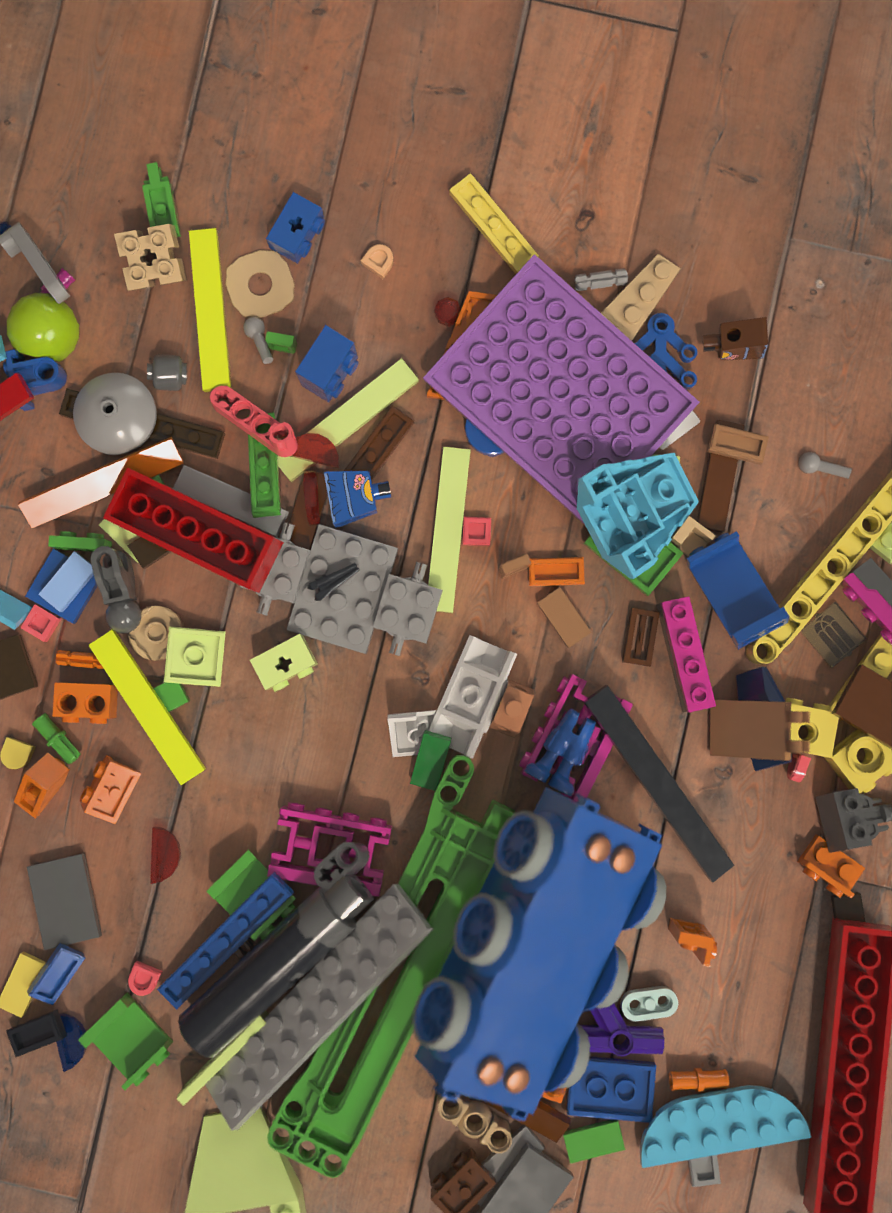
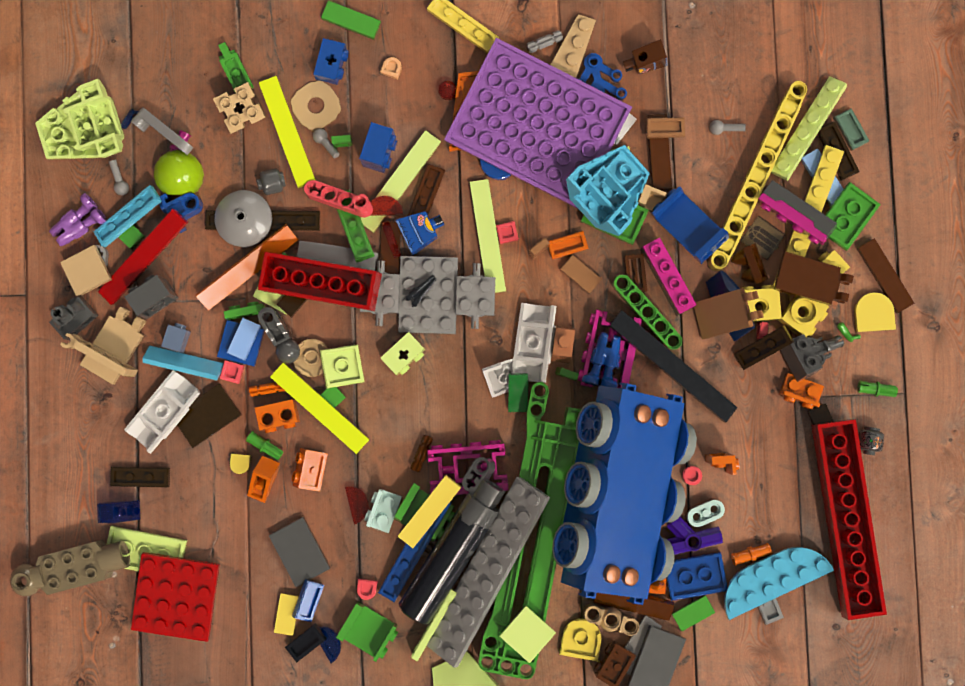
camera: 15 degrees left, 0 degrees up
(197, 874) = (383, 510): none -> light aqua bracket
(258, 898) = (429, 511): none -> light yellow tile
(272, 809) = (421, 453): none -> reddish brown axle
(340, 179) = (351, 20): none -> bright green tile
(347, 1116) = (527, 634): none -> yellowish green tile
(424, 1136) = (581, 640): none -> light yellow tile
(506, 752) = (566, 373): none -> bright green tile
(644, 943) = (692, 475): none -> coral tile
(651, 706) = (655, 315): none -> bright green beam
(795, 792) = (764, 347): none -> dark brown tile
(810, 656) = (750, 256): none -> reddish brown tile

